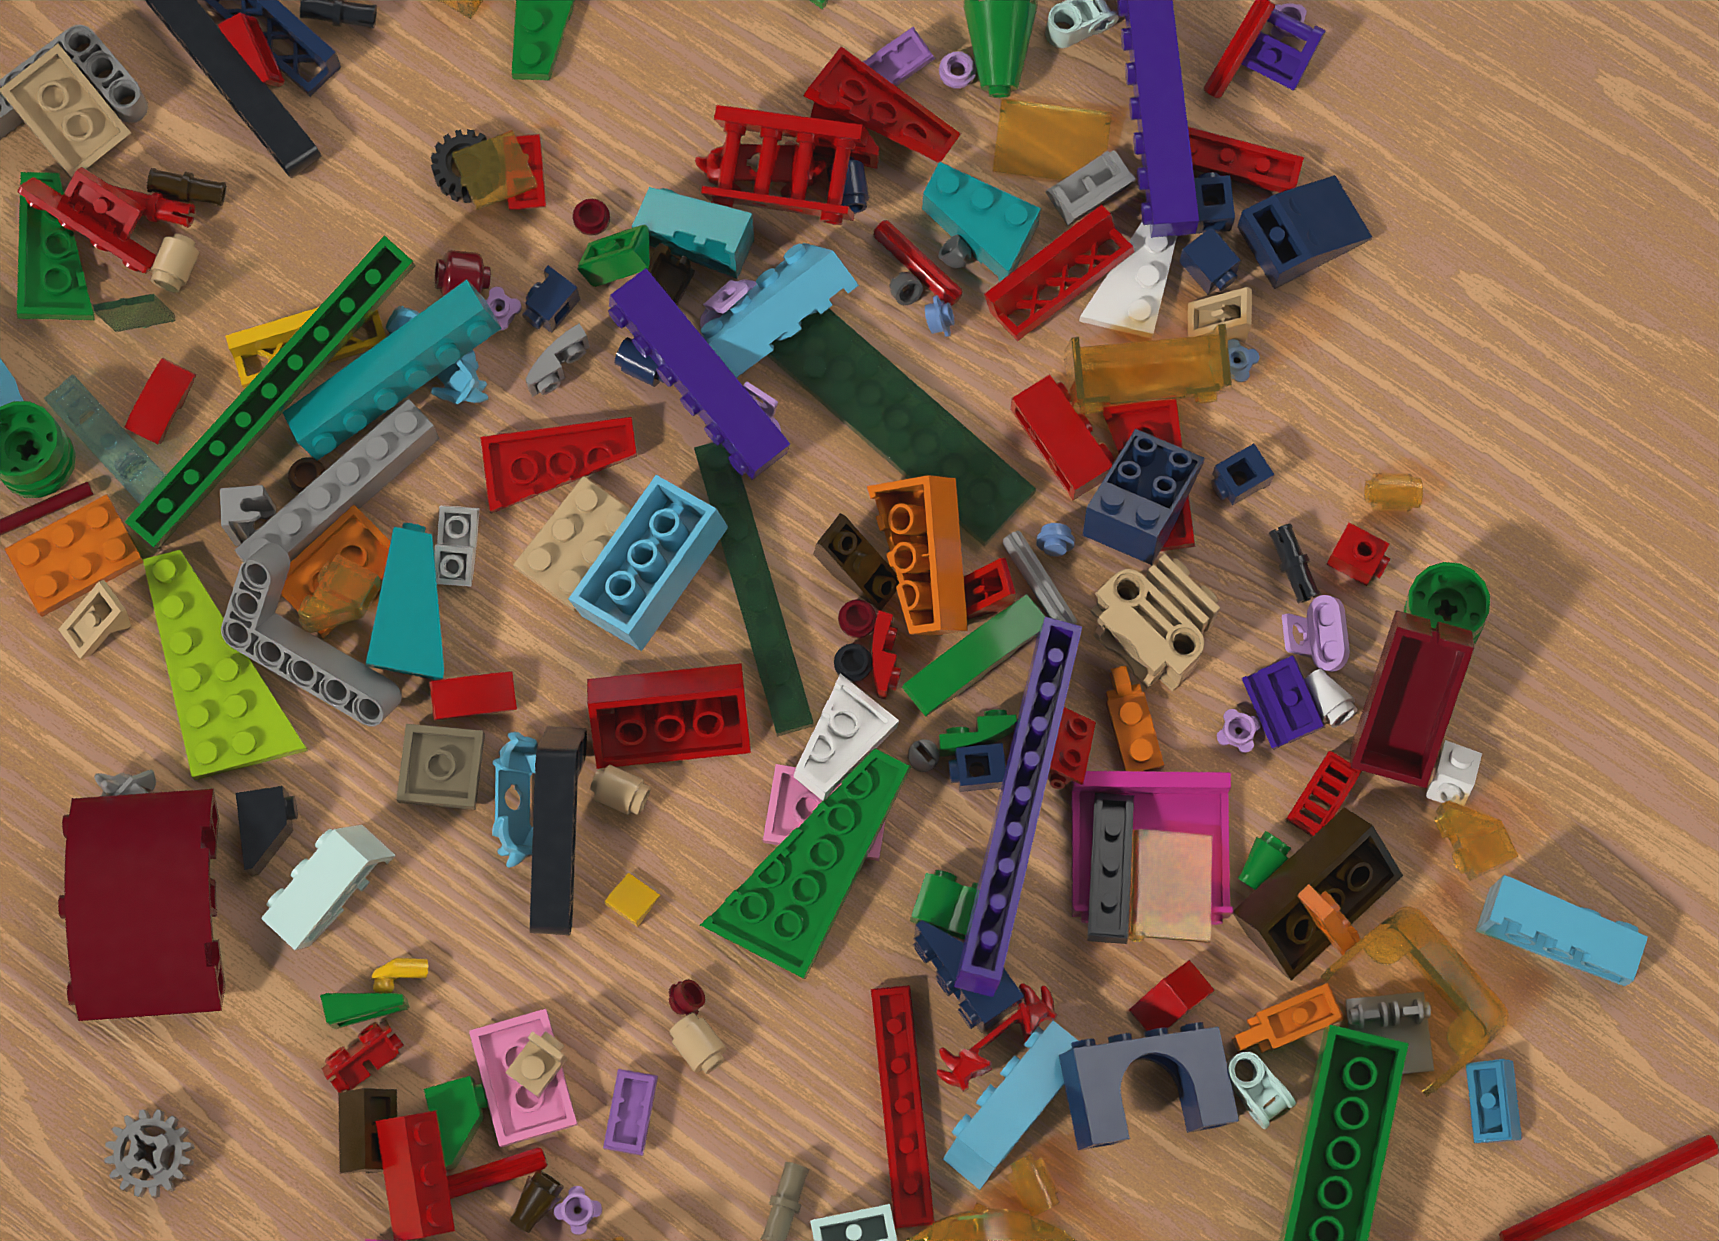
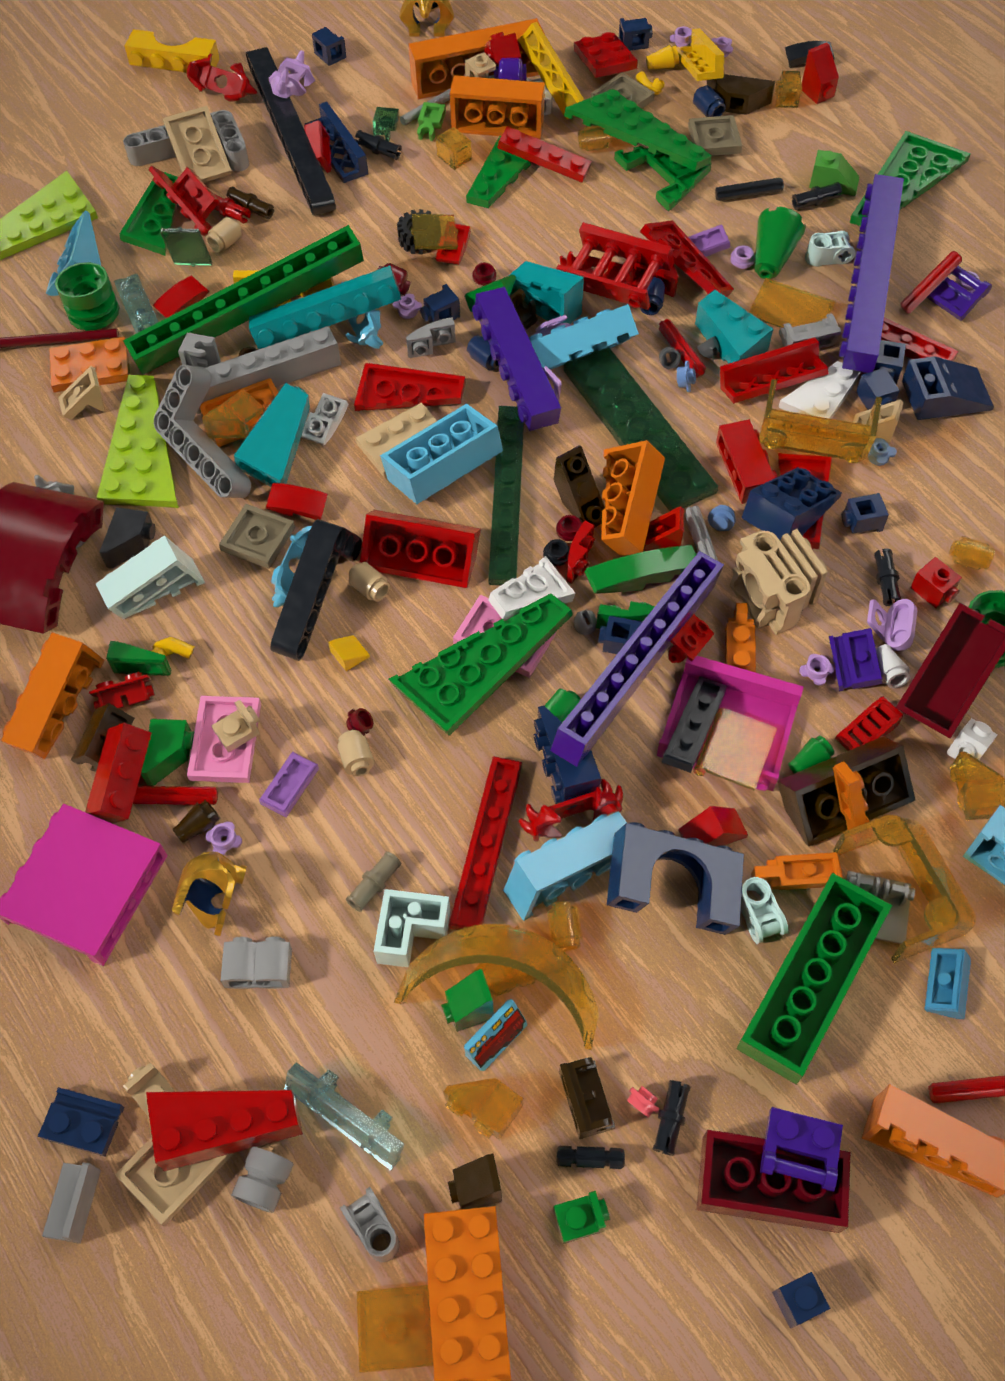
camera: 20 degrees right, 15 degrees down
(274, 1097) = (50, 694): none -> orange wedge

